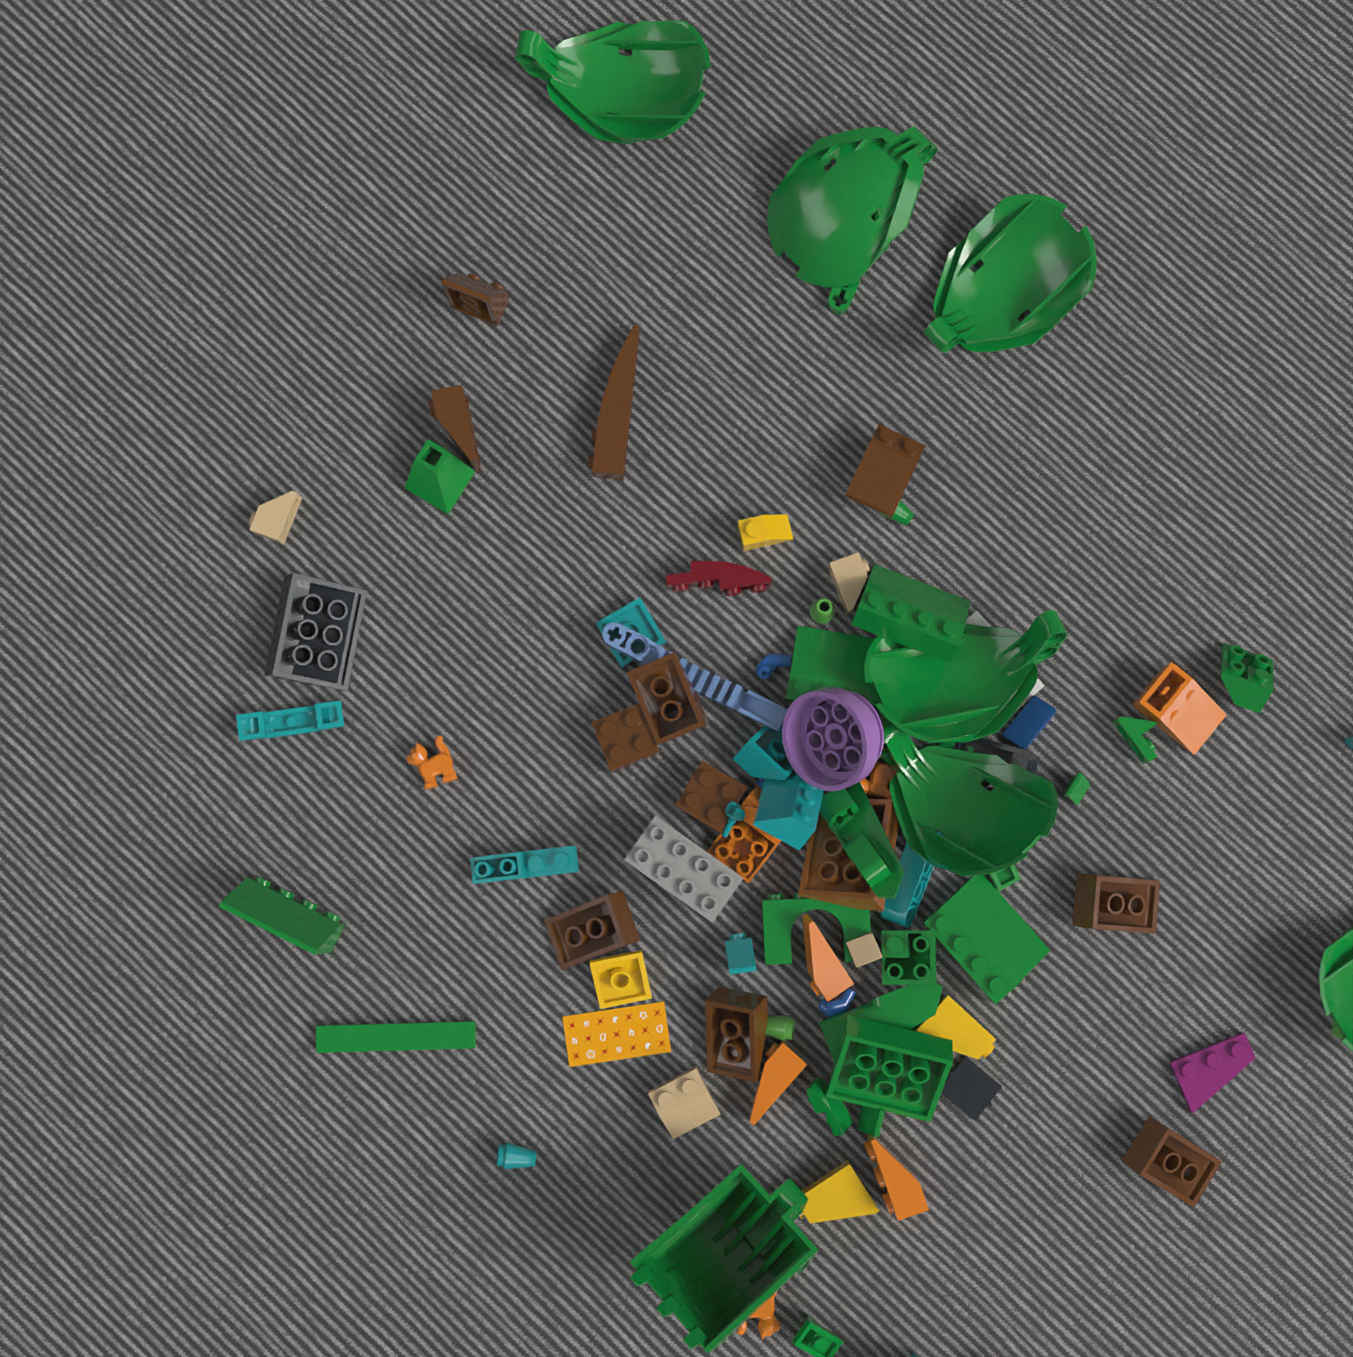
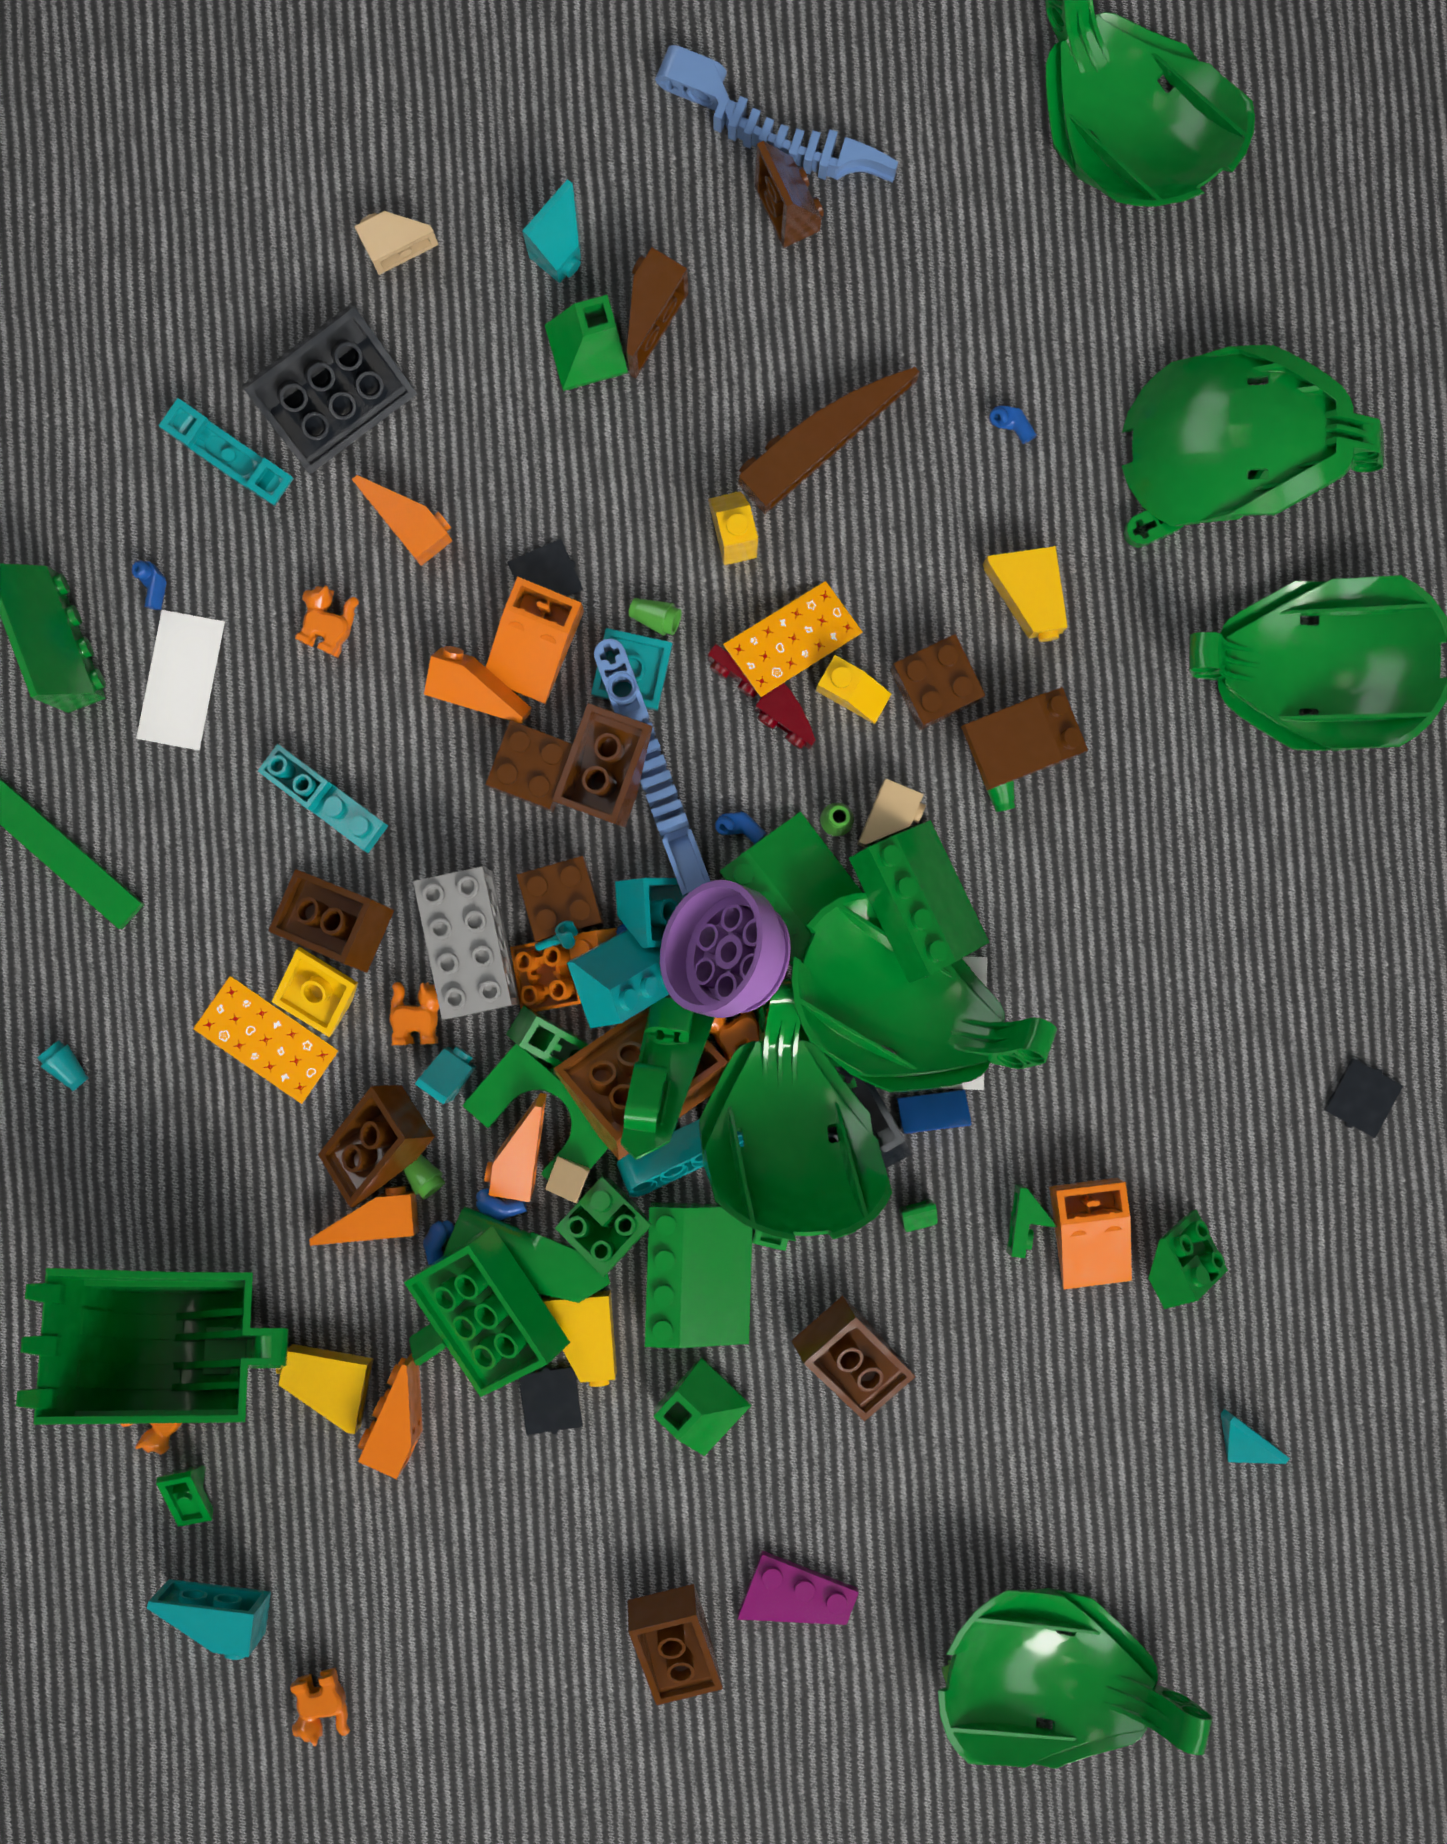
camera: 35 degrees right, 5 degrees up
(314, 832) = (153, 581): none -> blue arm
(367, 434) = (554, 235): none -> teal slope
(371, 277) = (701, 82): none -> medium blue piece
(379, 874) = (180, 680): none -> white sticker
(430, 664) = (409, 520): none -> orange slope
(532, 626) = (549, 568): none -> black piece
(547, 724) = (470, 684): none -> orange slope
(560, 667) = (533, 639): none -> orange slope
(615, 501) = (734, 527): none -> yellow slope
(616, 590) = (656, 615): none -> bright green cone
(684, 1102) = (267, 1161): tan slope -> none
(694, 938) = (414, 1018): none -> orange animal
(705, 533) = (792, 638): none -> light orange sticker
(713, 304) = (1012, 419): none -> blue arm
(774, 883) = (544, 1037): none -> green slope
(807, 484) = (937, 682): none -> reddish brown brick
(811, 387) = (1031, 590): none -> yellow slope
(820, 1057) = (435, 1240): none -> blue arm
(835, 1110) = (400, 1305): green slope -> none
(1058, 1010) = (701, 1408): none -> green slope
(1254, 496) = (1363, 1098): none -> black piece

